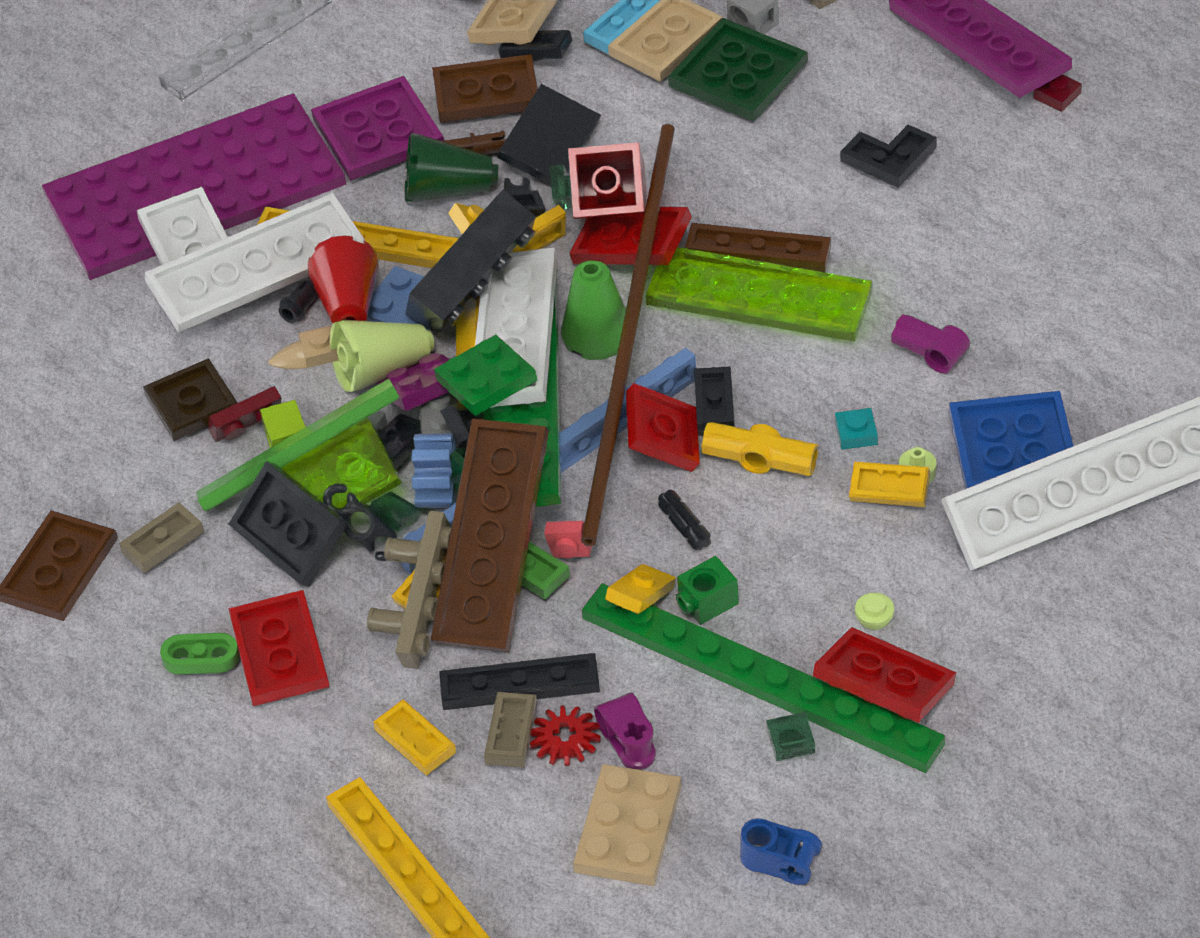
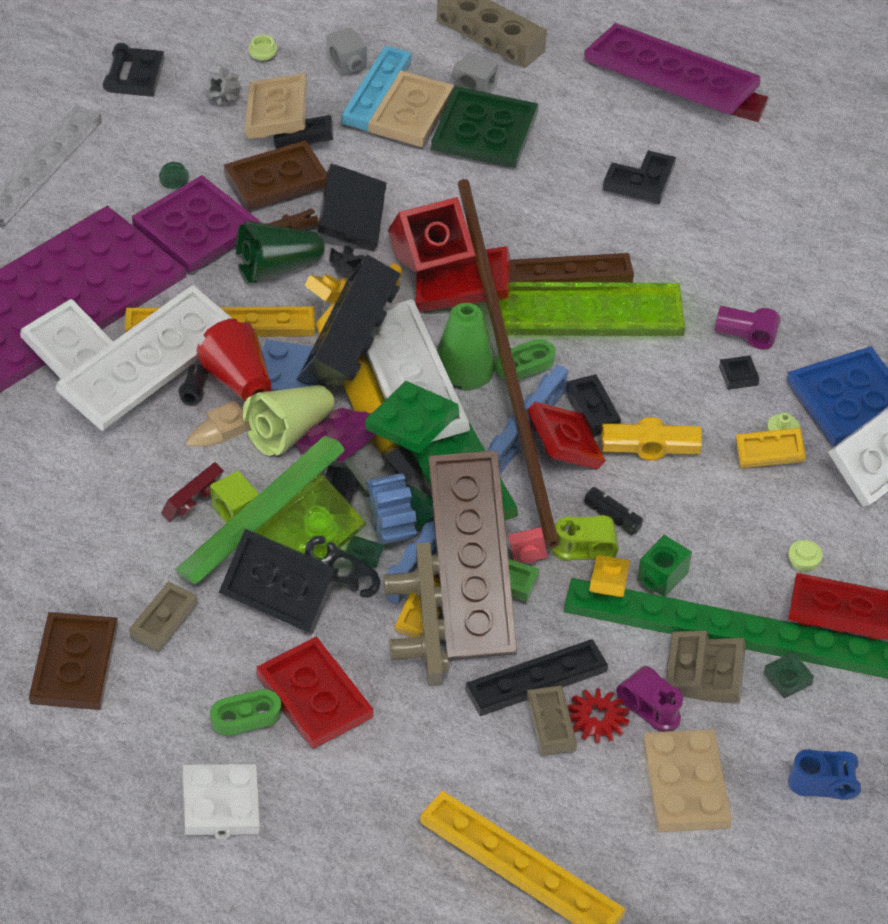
camera: 25 degrees left, 0 degrees up
(137, 737) = (220, 800): none -> white plate
(189, 398) = (134, 488): dark brown plate -> none
(377, 71) = (173, 175): none -> clear green plate
(414, 737) = (471, 745): yellow plate -> none
(560, 186) = (385, 246): clear green plate -> none
(637, 542) = (586, 537): none -> lime piece
(665, 336) = (530, 358): none -> bright green plate
(706, 709) = (706, 666): none -> dark tan slope
(856, 428) = (718, 407): teal plate -> none
(898, 393) = (739, 372): none -> black tile

